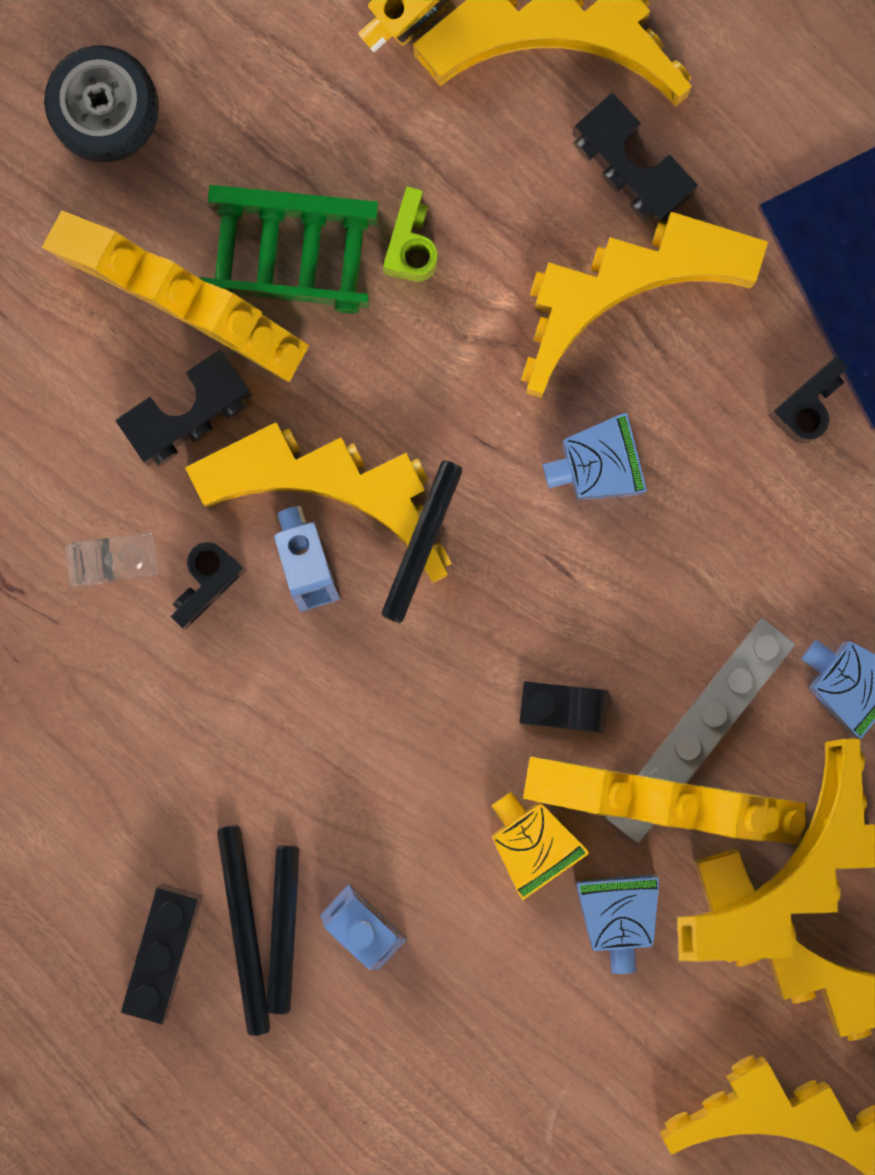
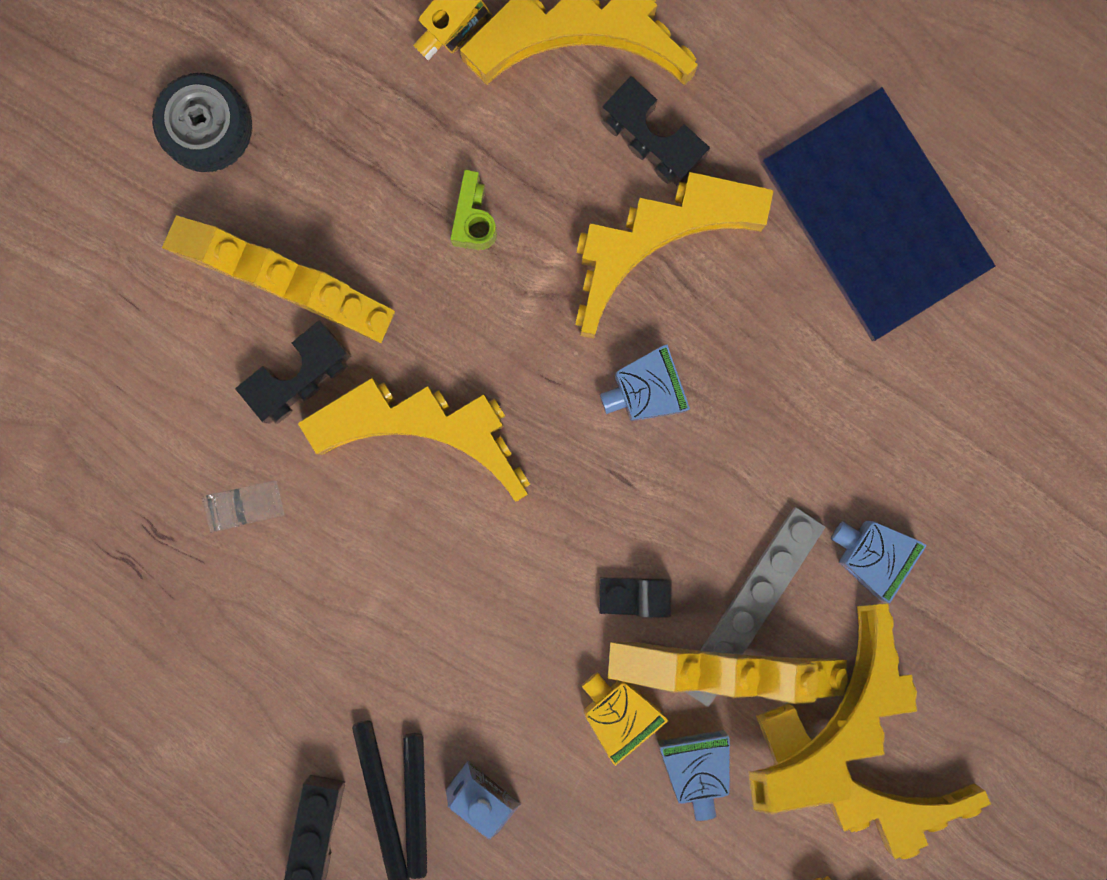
camera: 10 degrees left, 0 degrees up
(193, 604) = (317, 536): black plate -> none
(306, 574) = (412, 505): medium blue torso -> none
(314, 213) = (389, 198): green fence -> none
(422, 541) = (503, 469): black axle -> none
(805, 399) = (816, 319): black plate -> none

